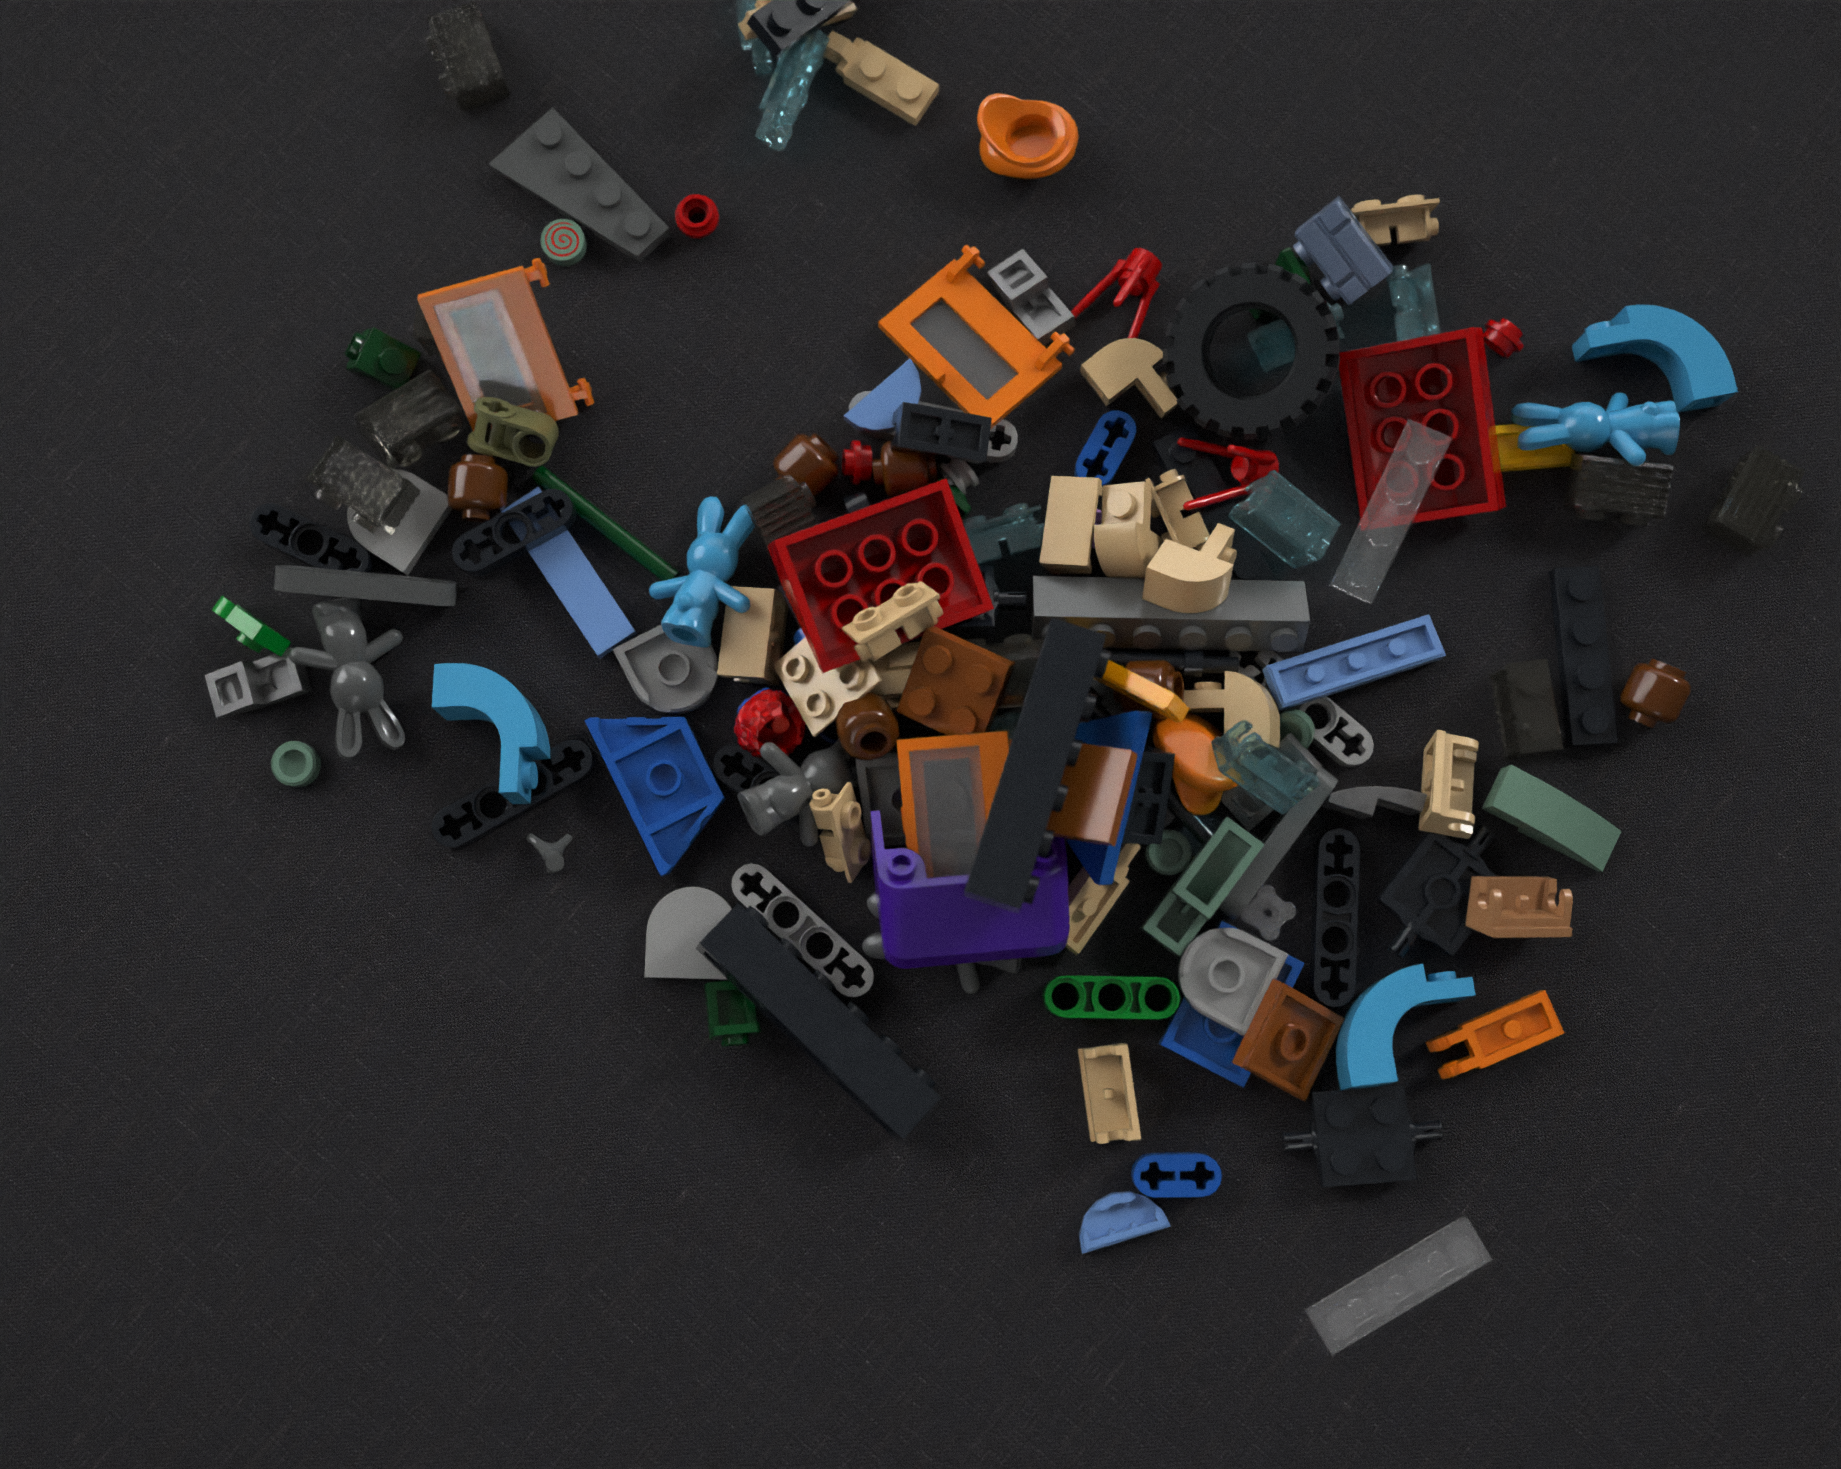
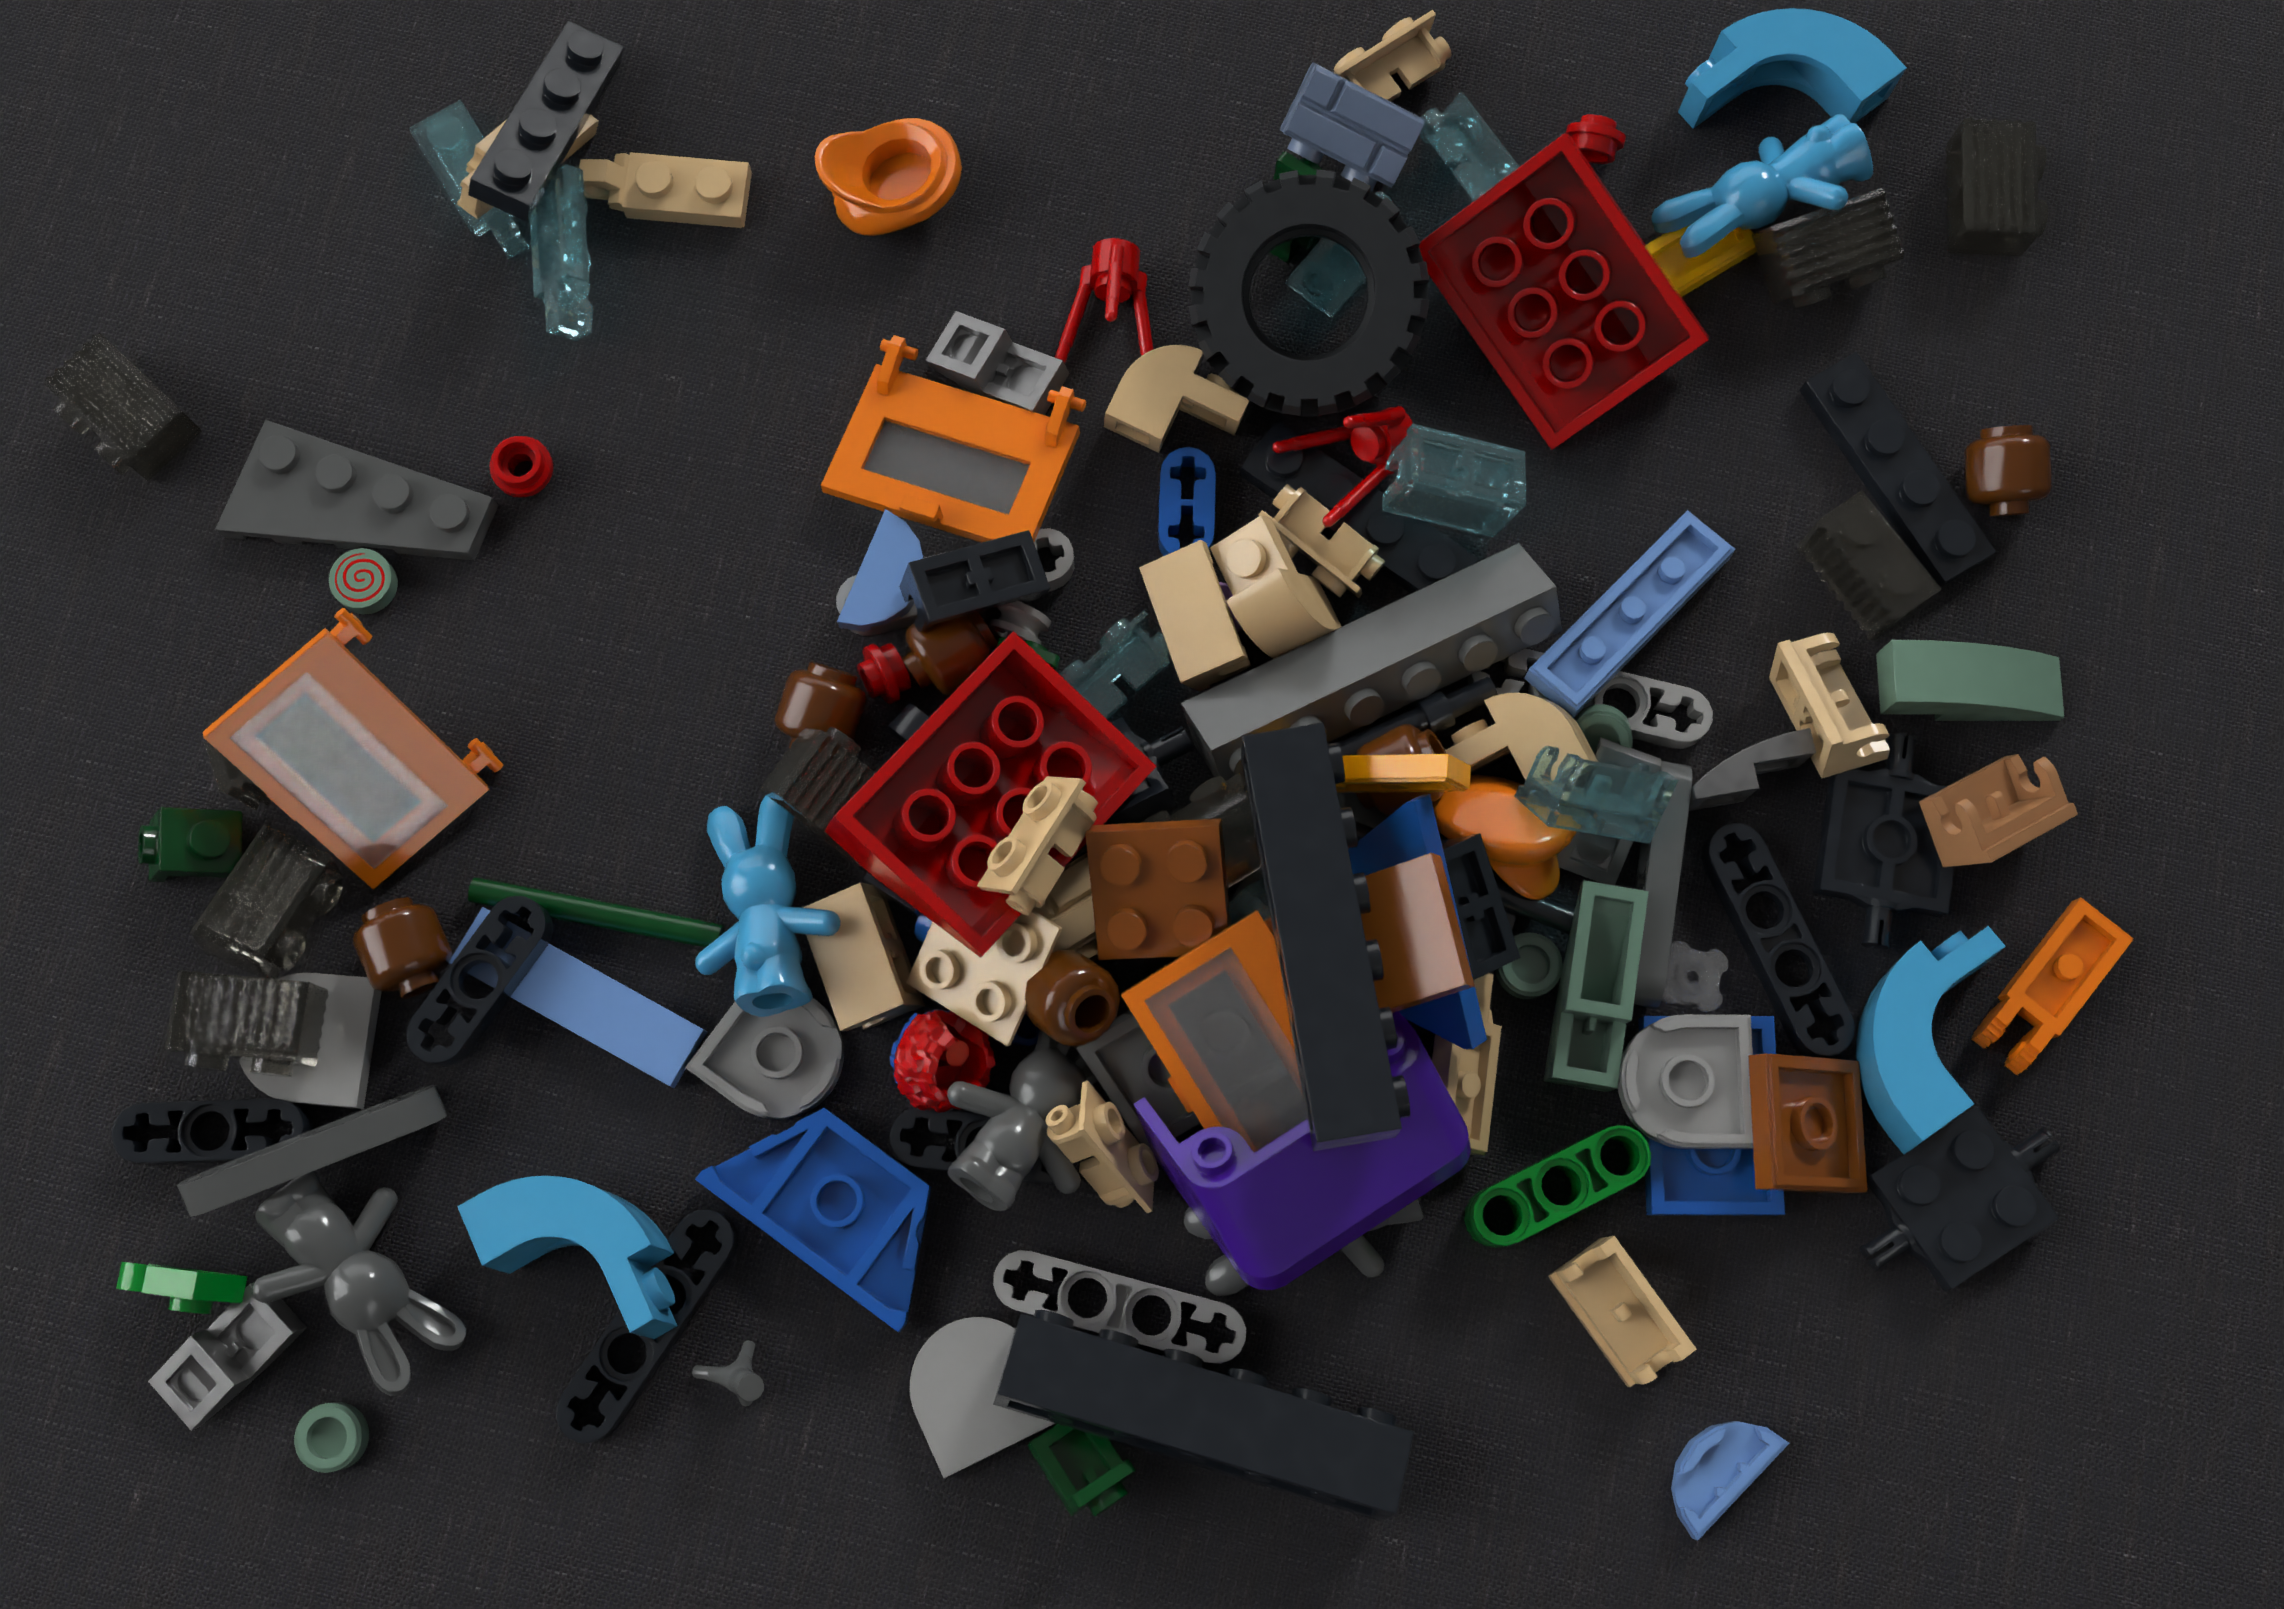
camera: 30 degrees left, 5 degrees down
(509, 432) = (410, 854): olive piece -> none
(1176, 1186) = (1766, 1387): blue beam -> none
(1189, 578) = (1379, 607): tan brick -> none
(1391, 511) = (1578, 406): clear plate -> none
(1398, 1285) = (2107, 1366): clear plate -> none

